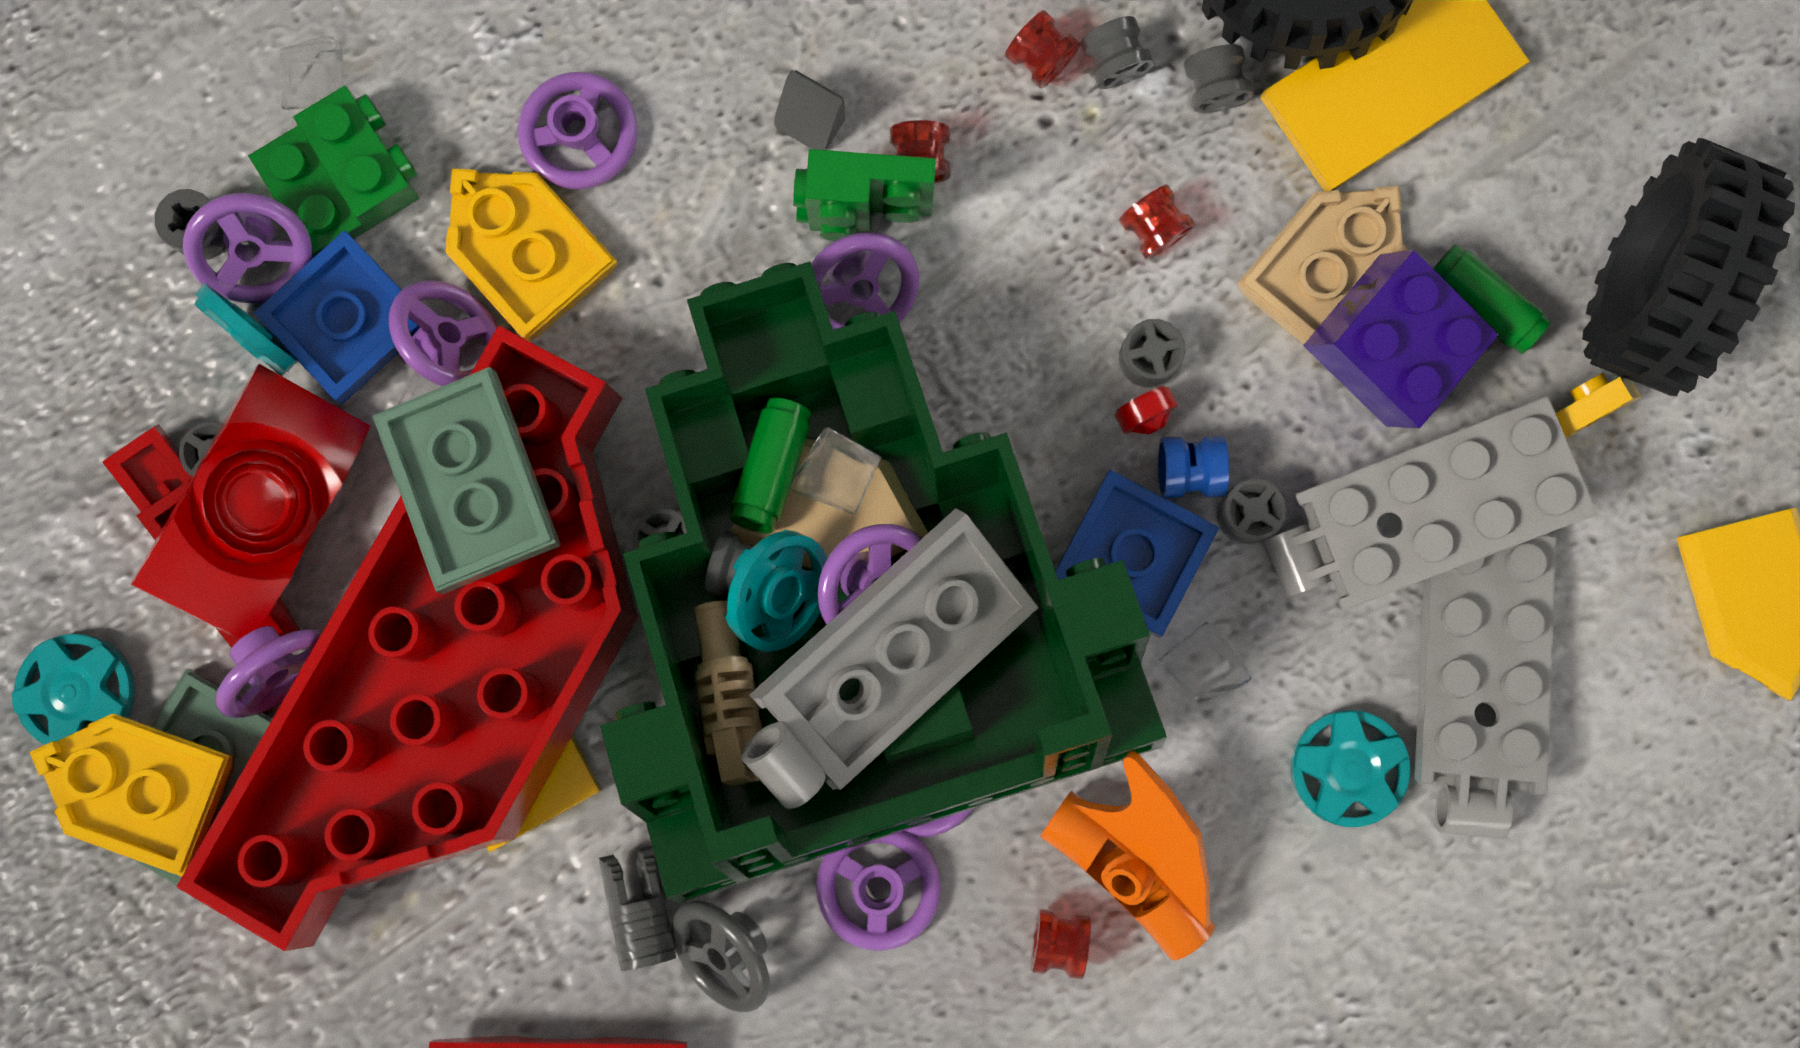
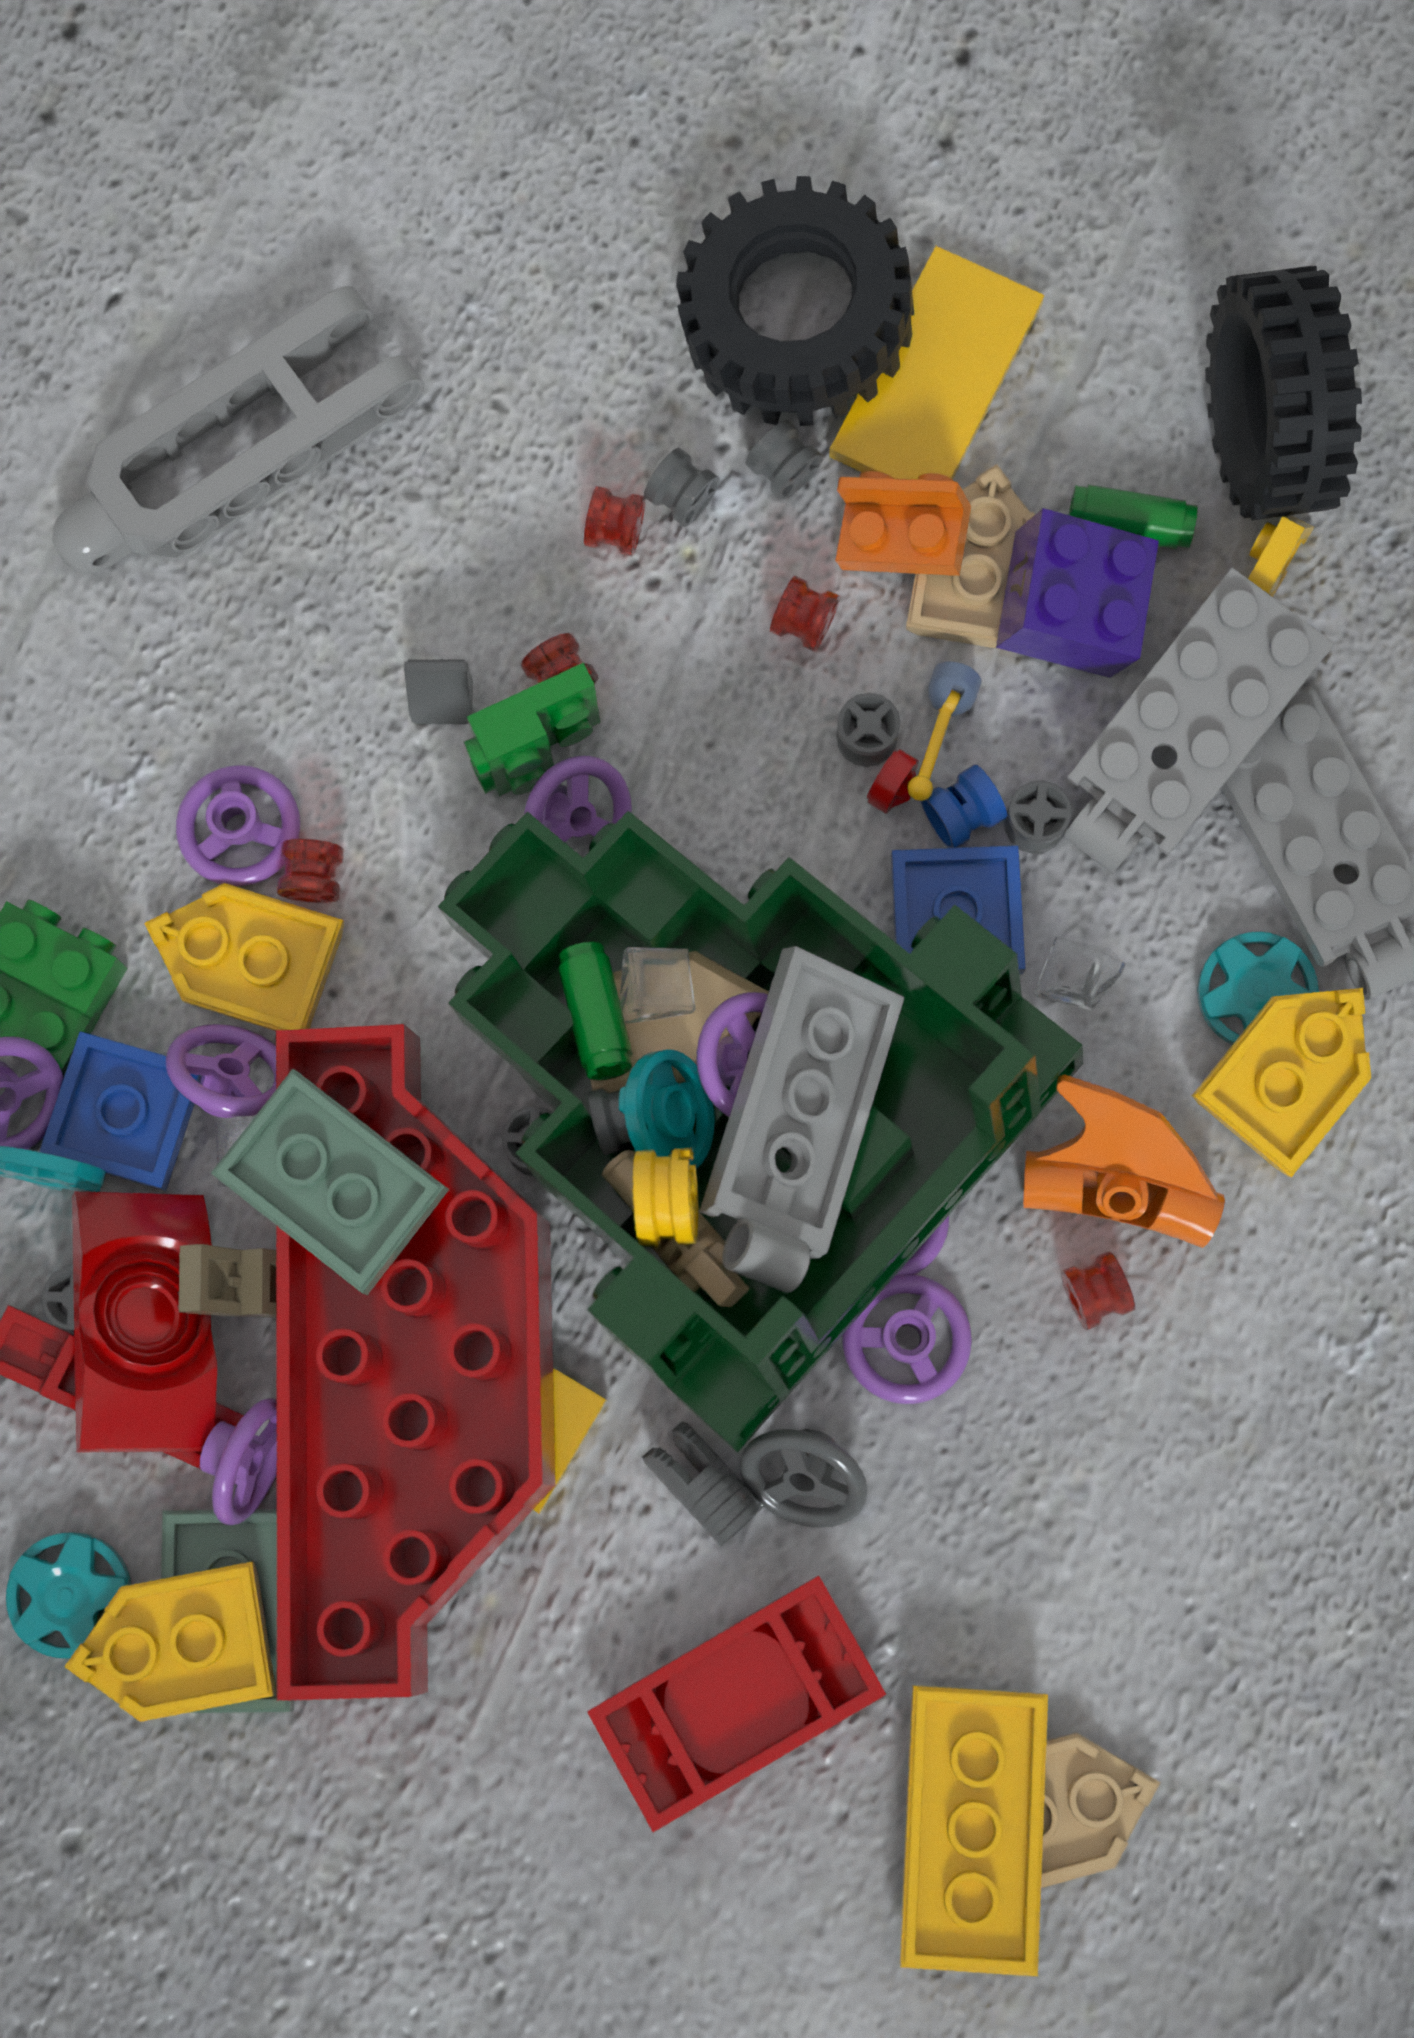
camera: 25 degrees left, 5 degrees down
(337, 511) = (227, 1281): none -> dark tan slope
(613, 204) = (310, 870): none -> clear red wheel
(725, 666) = (665, 1197): none -> yellow wheel
(1241, 363) = (952, 692): none -> hinge
(1286, 193) = (902, 524): none -> orange bracket
(1335, 857) = (1291, 1074): none -> yellow tile

